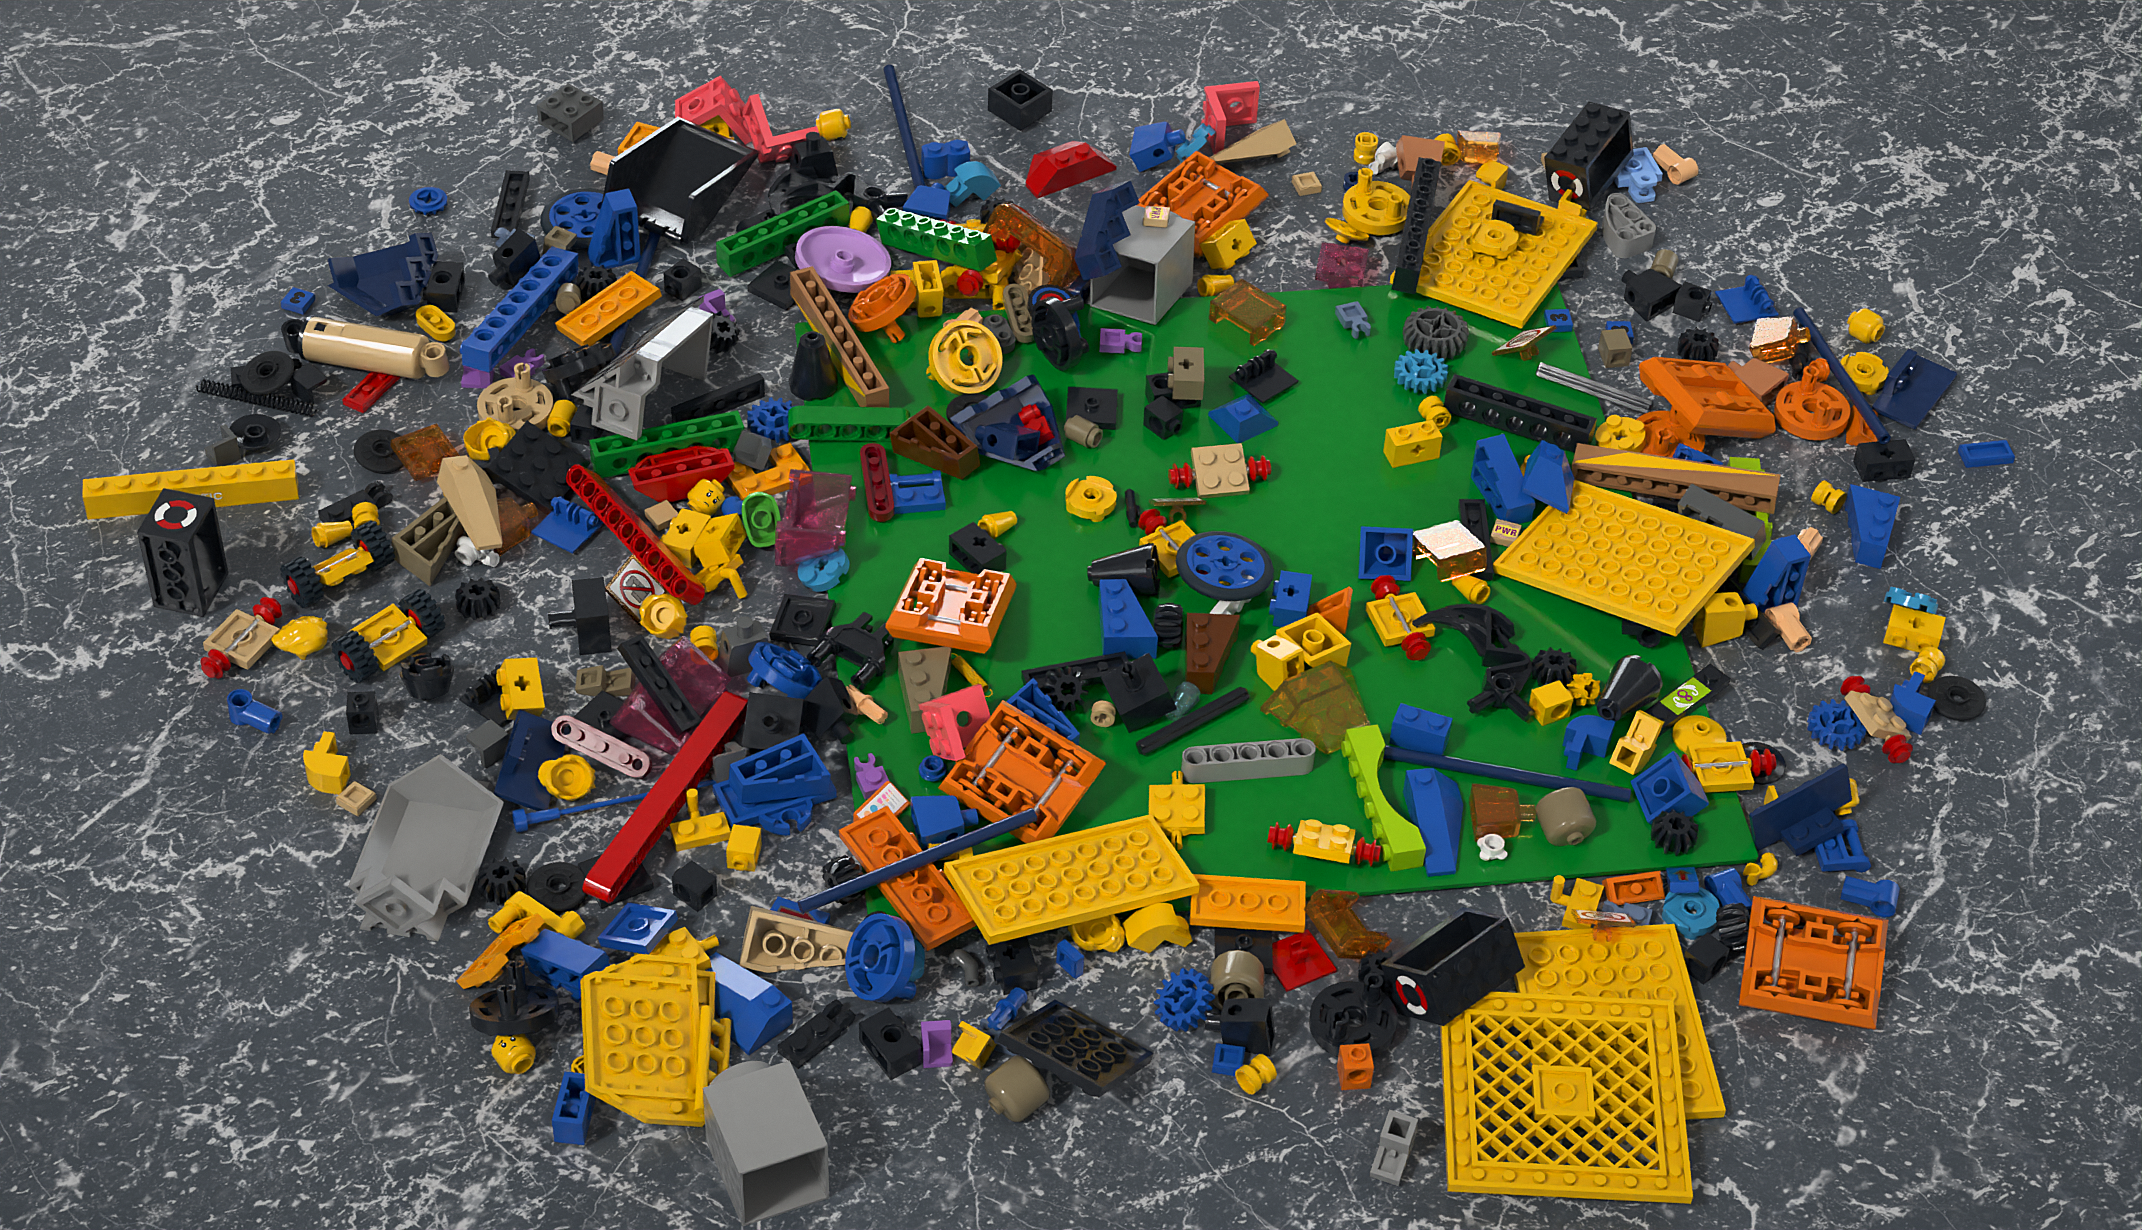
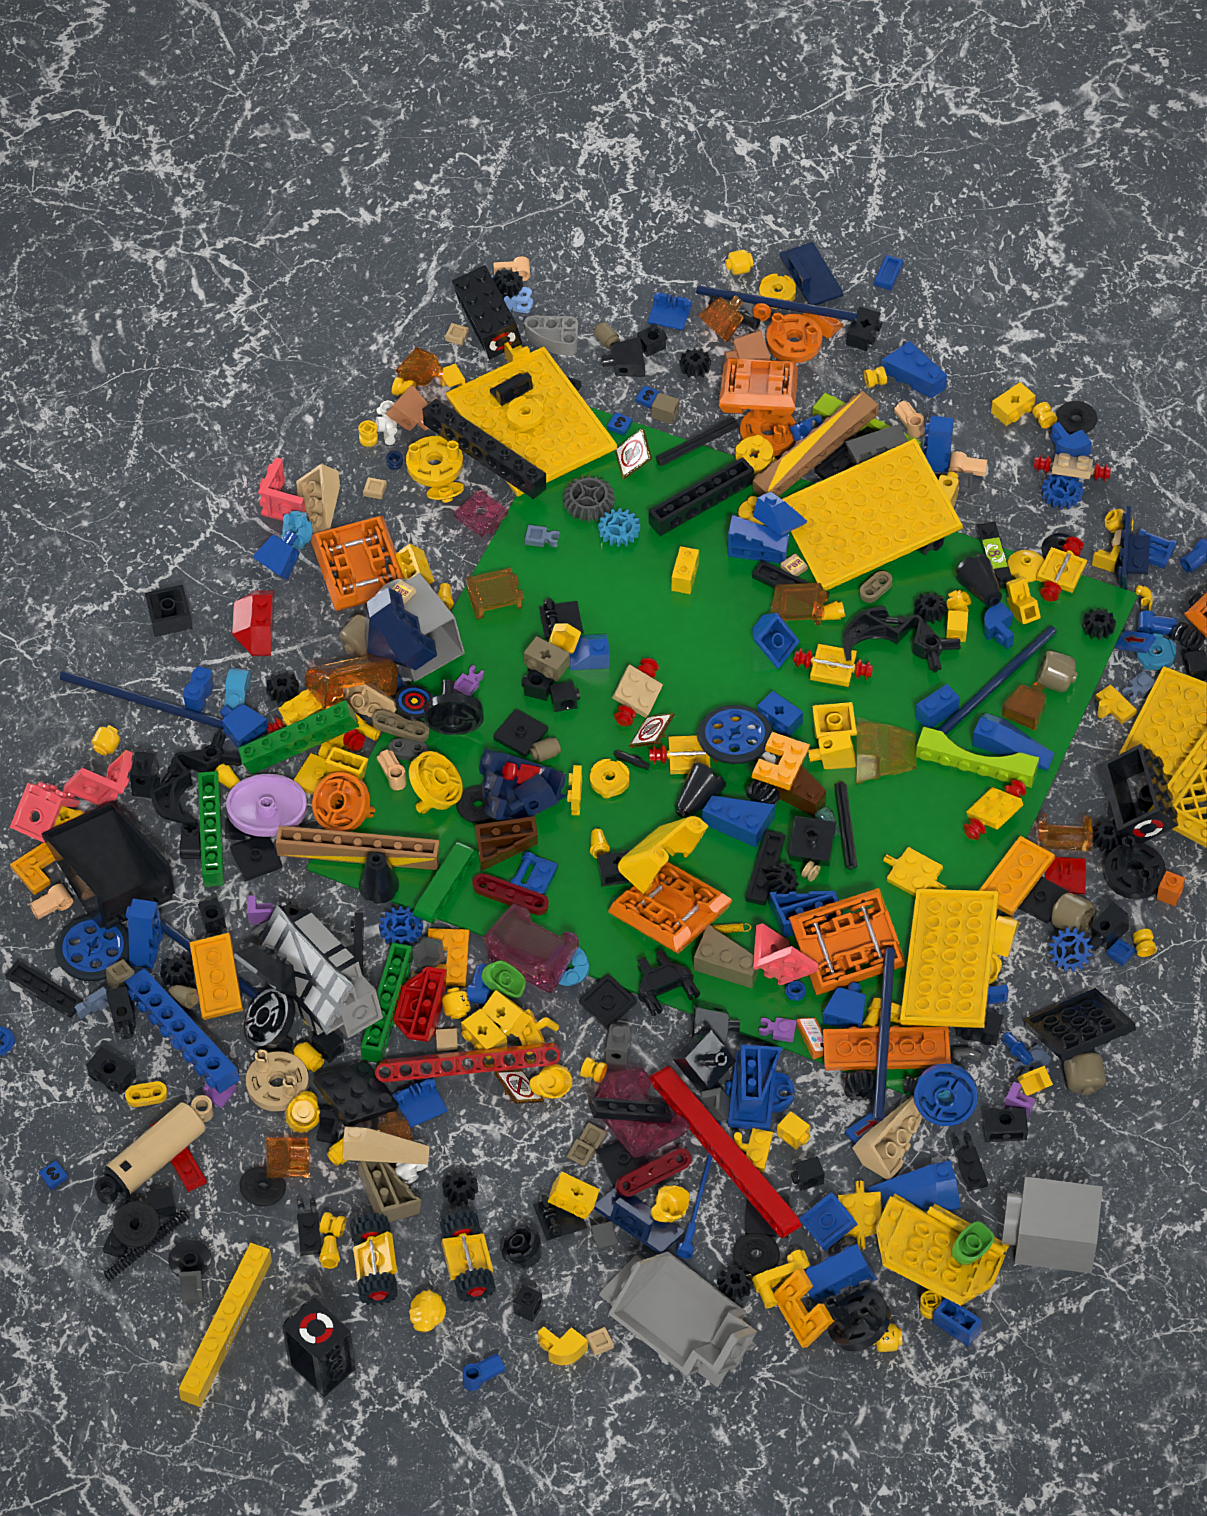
camera: 55 degrees left, 10 degrees up
(241, 638) = (402, 1351): tan plate -> none
(386, 278) = (79, 1103): dark blue panel -> none
(530, 358) = (233, 1056): medium lavender plate -> none
(587, 616) = (530, 1125): black brick -> none
(624, 323) = (270, 967): none -> black wedge
(676, 1061) = (972, 1243): none -> bright green piece
(783, 670) = (661, 1032): blue piece -> none
(865, 705) = (719, 1000): light nougat axle -> none
(1046, 568) = (649, 856): none -> yellow windscreen
(1048, 474) = (574, 795): none -> yellow plate
(1234, 383) = (565, 637): none -> yellow panel
(1235, 620) = (783, 774): none -> light orange plate
(1248, 760) = (903, 805): light grey beam -> none
(1334, 609) = (806, 695): orange slope -> none
(1433, 409) = (663, 542): yellow wheel -> none
(1492, 847) = (1050, 719): white plate -> none
(1540, 611) = (873, 586): none -> dark tan plate
(1603, 921) = (1147, 698): clear orange piece -> none
(1634, 888) = (1118, 670): orange slope -> none
(1640, 154) = (508, 282): none -> black gear
(1668, 787) = (1065, 607): blue slope -> none
(1918, 602) = (996, 391): dark azure plate -> none

